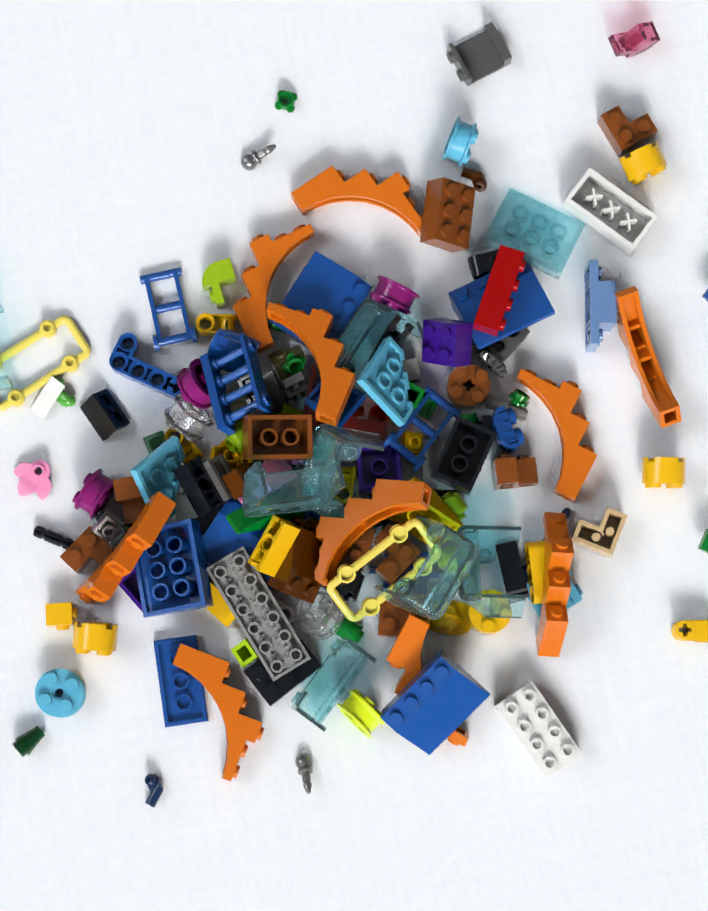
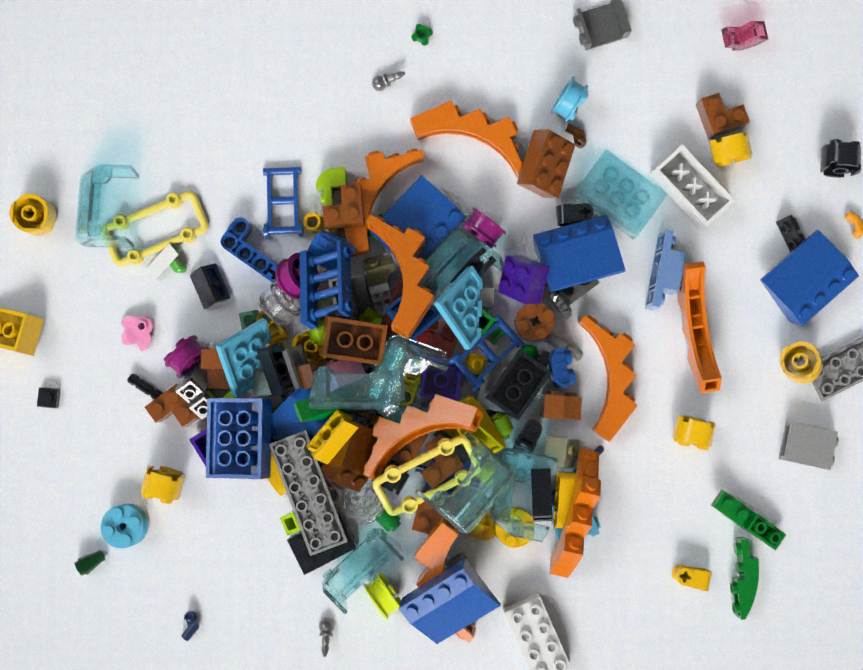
camera: 15 degrees right, 5 degrees up
(61, 615) = (137, 457): yellow brick -> none
(122, 560) = (212, 408): orange arch -> none
(180, 692) = (232, 534): blue tile -> none
(238, 728) = (257, 534): orange arch -> none
(244, 306) = (349, 213): none -> dark orange brick
(291, 358) = (382, 269): green plate -> none
(485, 514) = (527, 438): none -> black piece
(498, 291) = (579, 241): red brick -> none
(519, 398) = (578, 340): green plate -> none
(527, 517) = (563, 449): none -> olive brick
(603, 537) = (628, 479): tan brick -> none

